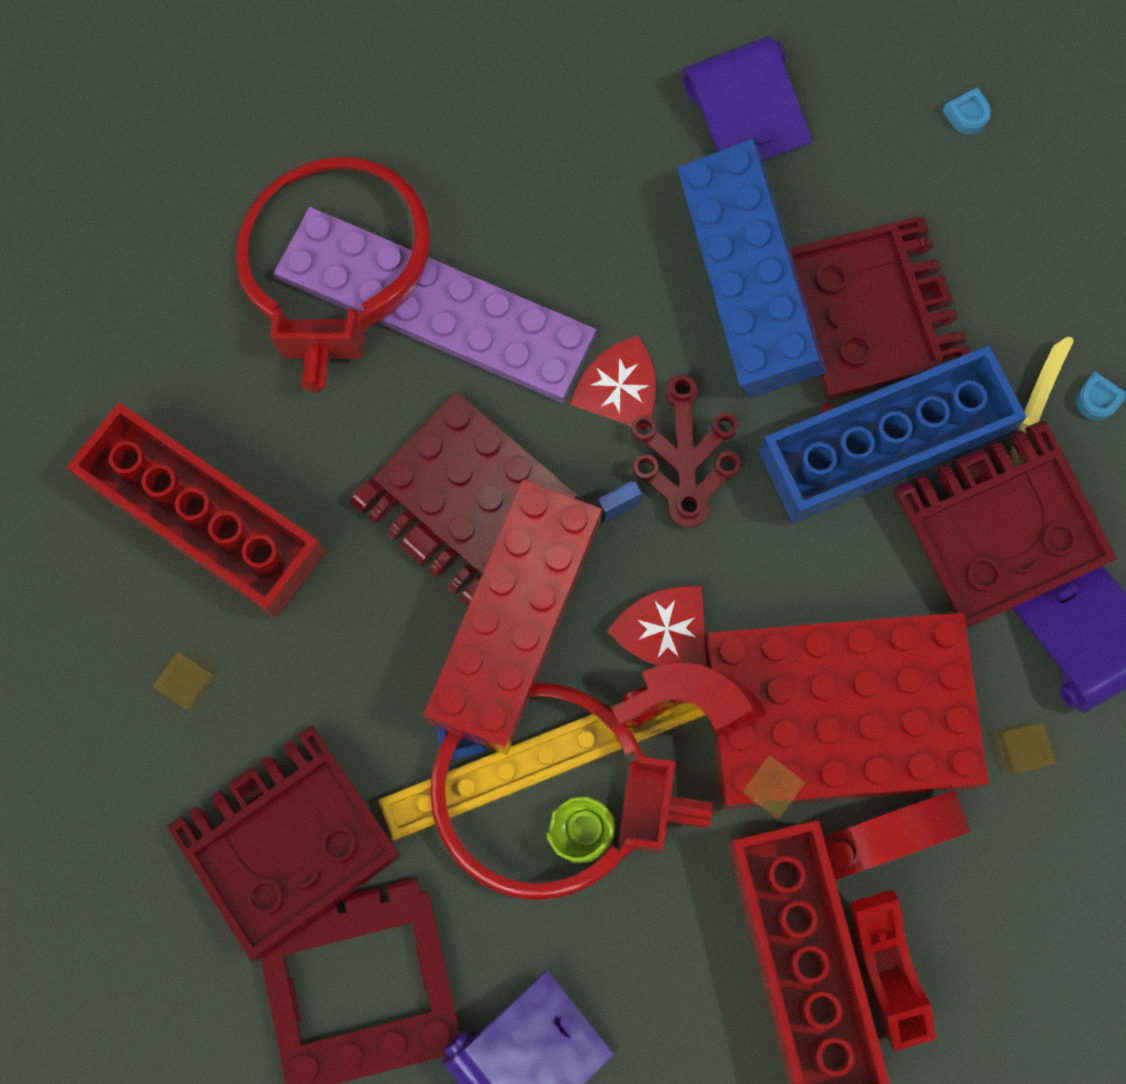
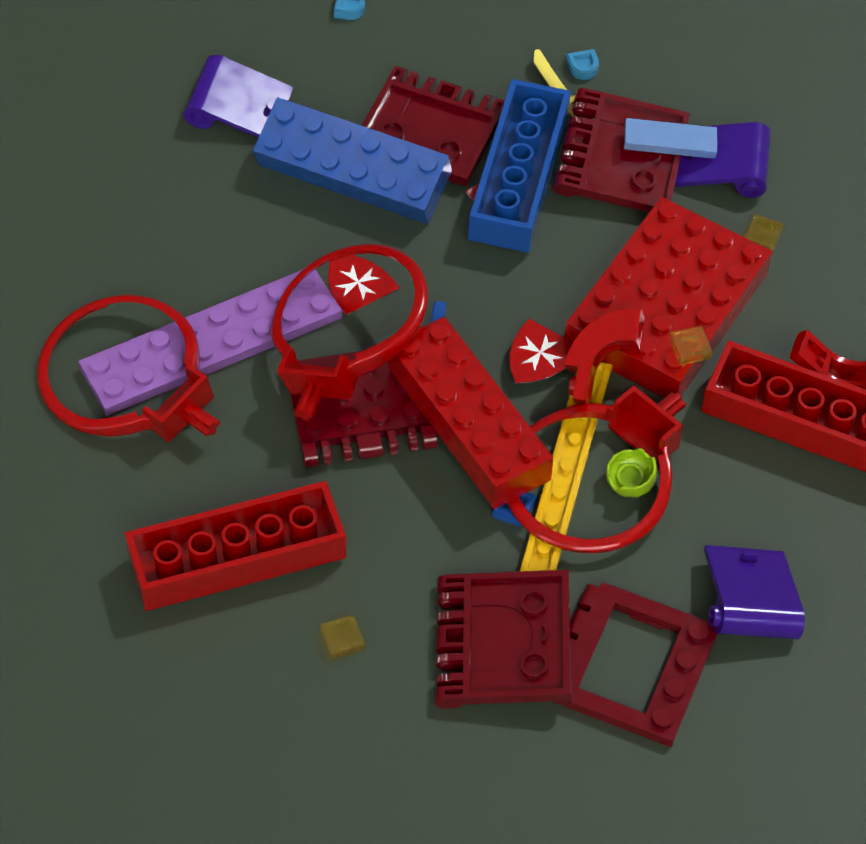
camera: 55 degrees left, 20 degrees down
(442, 448) = (339, 381): none -> red brick
(685, 457) = (441, 275): dark red plant -> none
(896, 834) = (766, 315): red arch -> none
(1059, 565) = (670, 138): none -> medium blue tile

